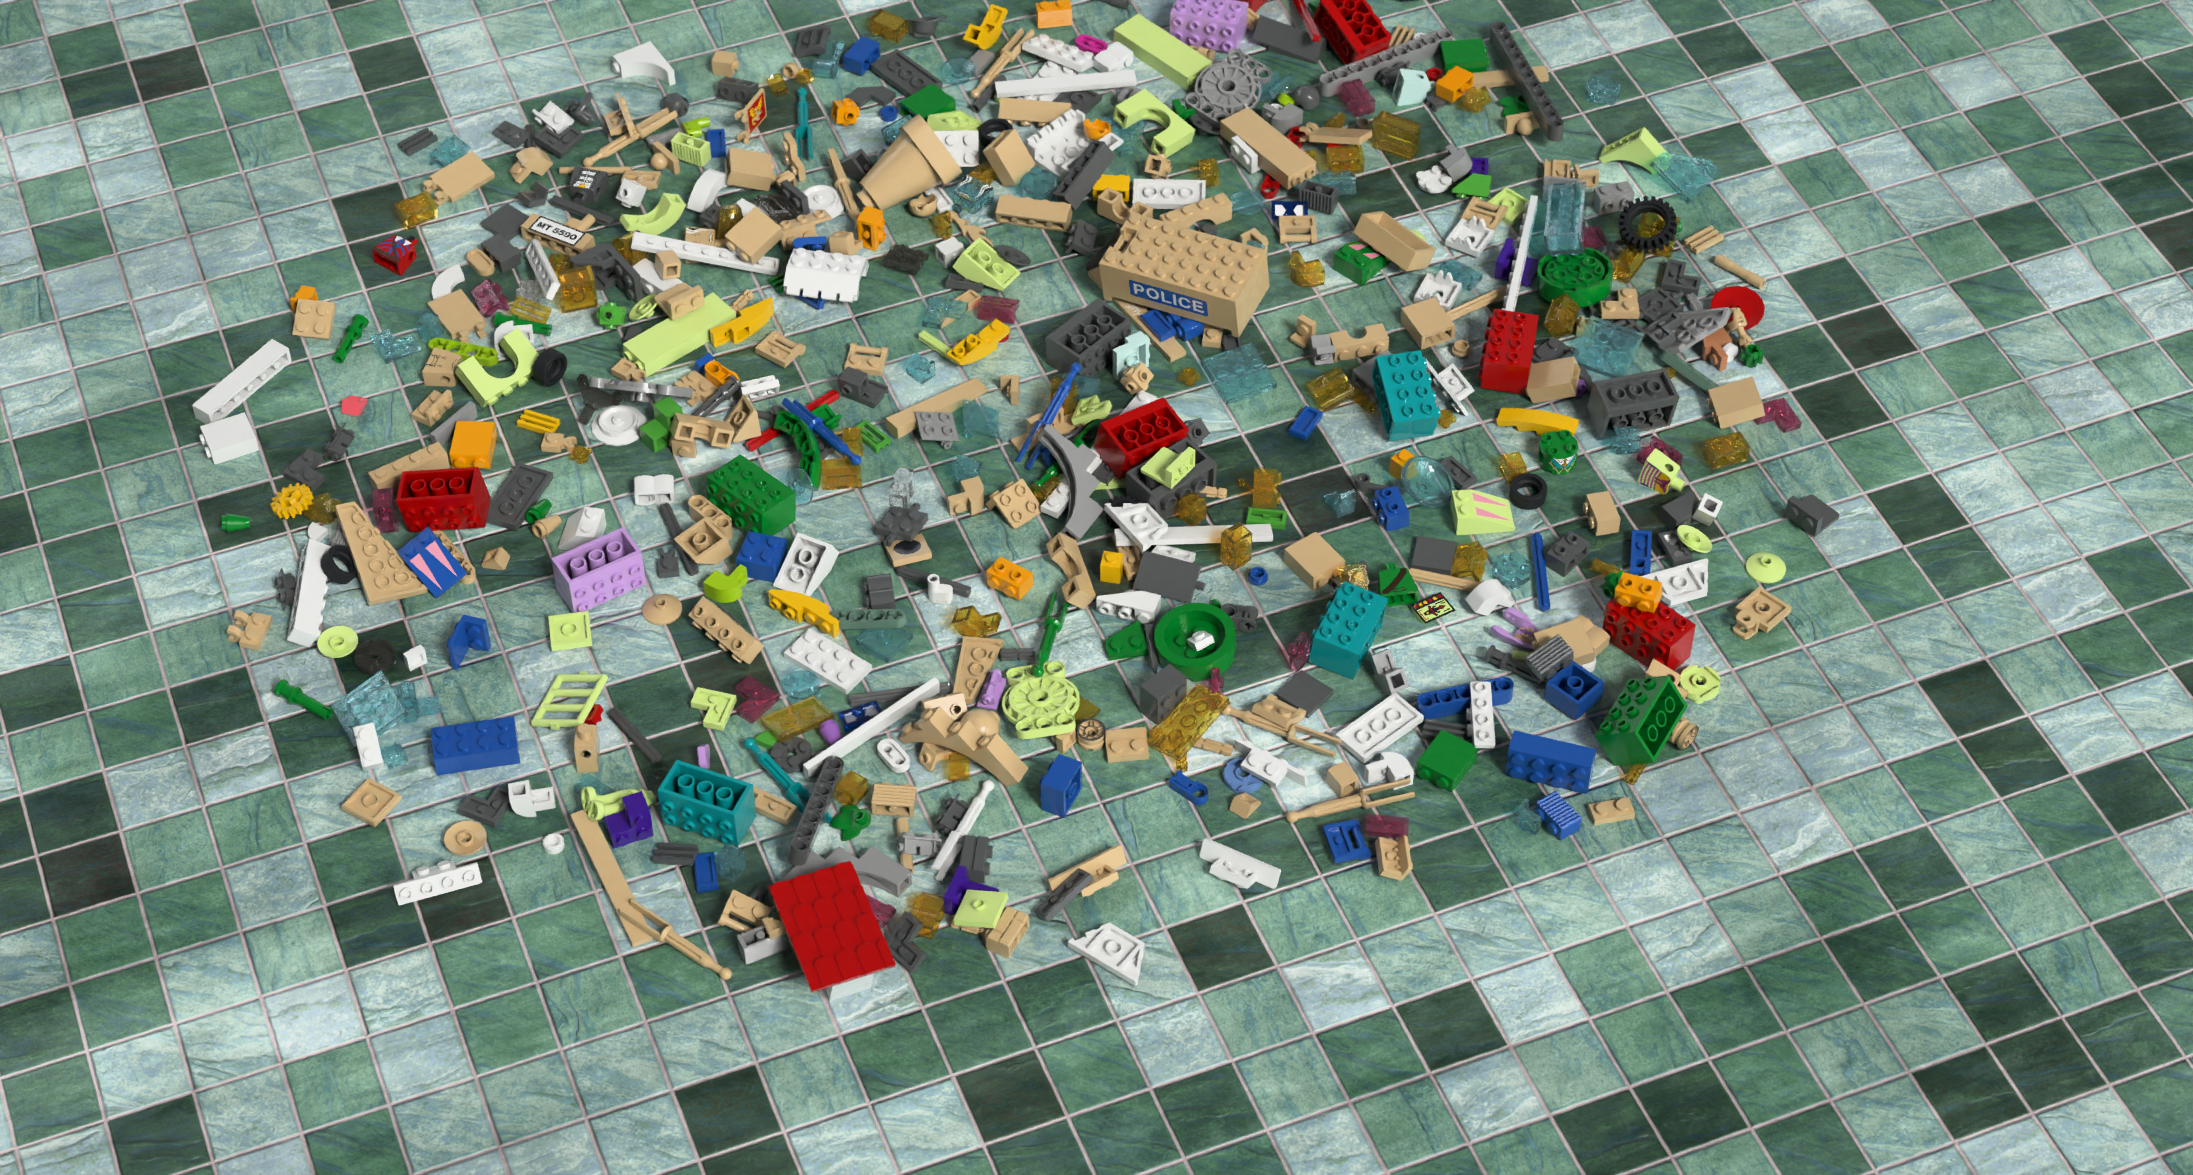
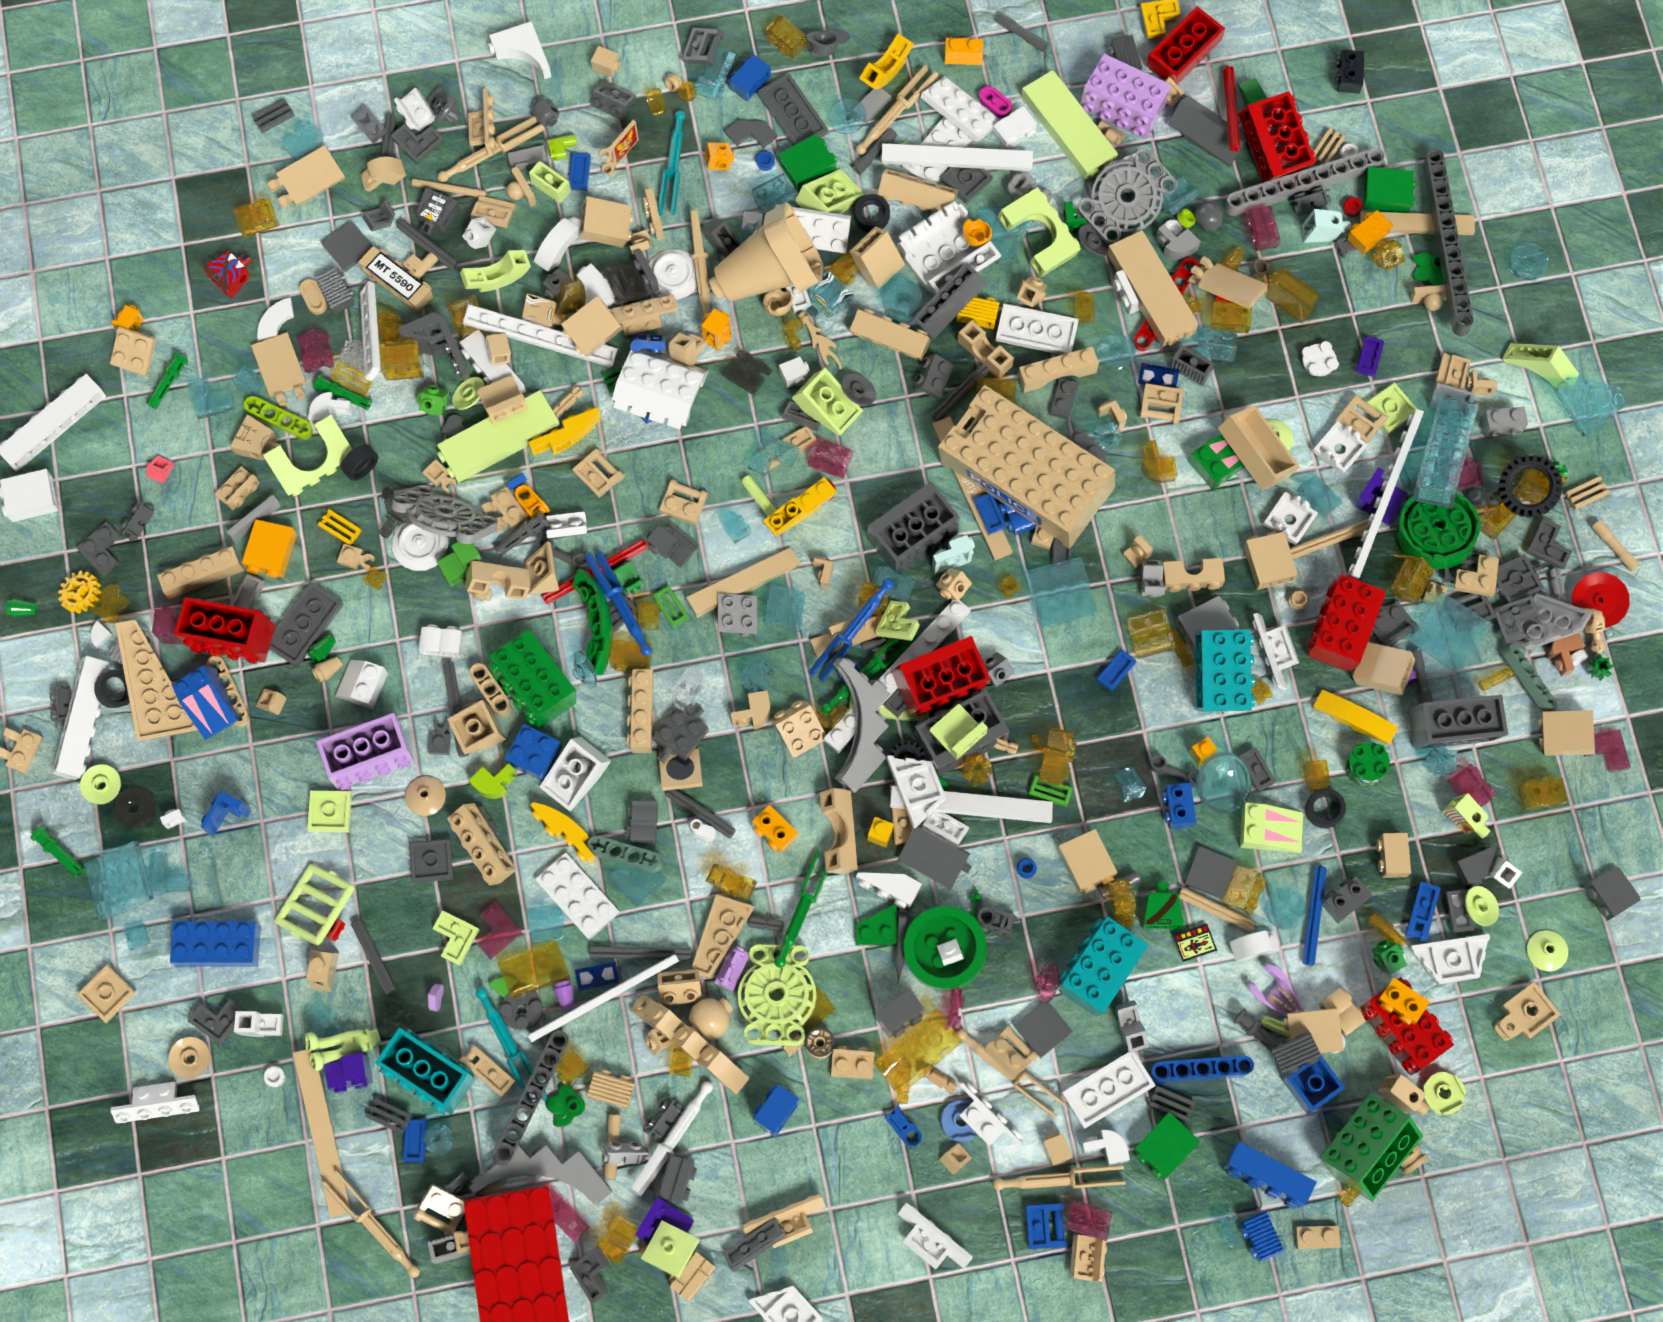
camera: 10 degrees right, 25 degrees up
(368, 746) = (110, 931): white brick -> none
(678, 654) = (431, 861): none -> dark grey plate
(861, 511) = (641, 711): none -> tan brick
(894, 757) = (620, 1033): white plate -> none
(1236, 546) = (1009, 833): clear yellow brick -> none
(1457, 163) = (1350, 345): light grey brick -> none
(1475, 185) = (1359, 379): bright green slope -> none
(1481, 716) = (1212, 1102): white bracket -> none

